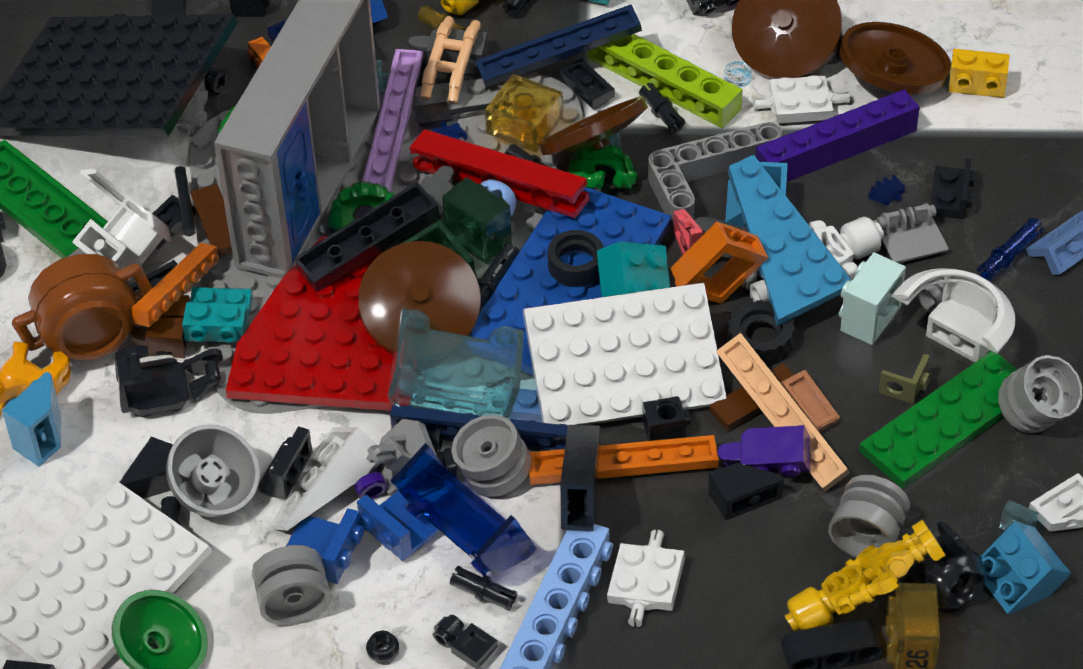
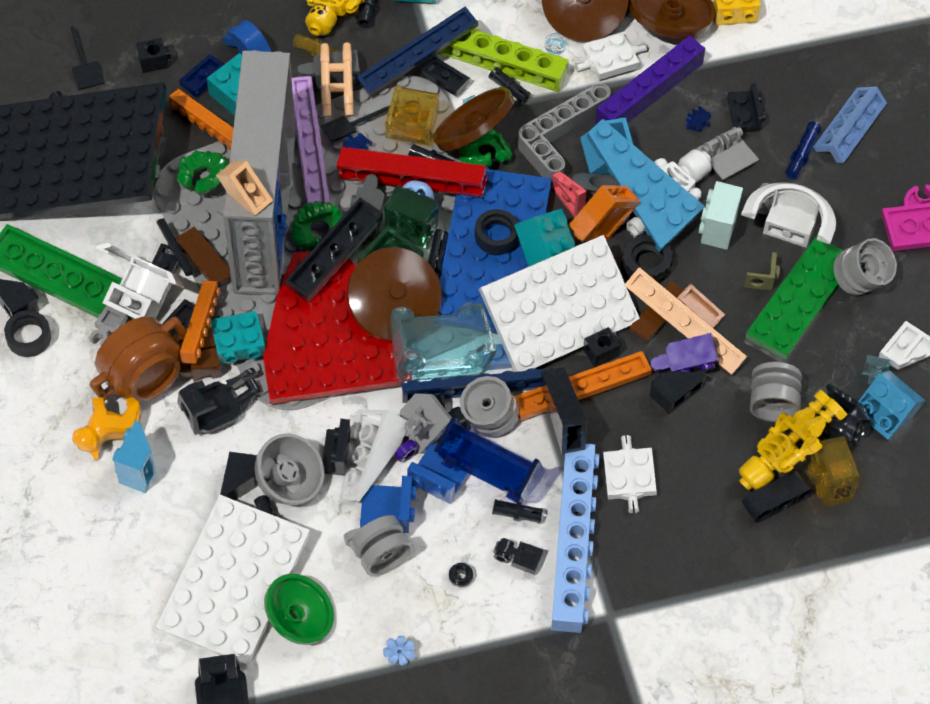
camera: 20 degrees left, 10 degrees up
(249, 113) = (244, 186): none -> light nougat slope

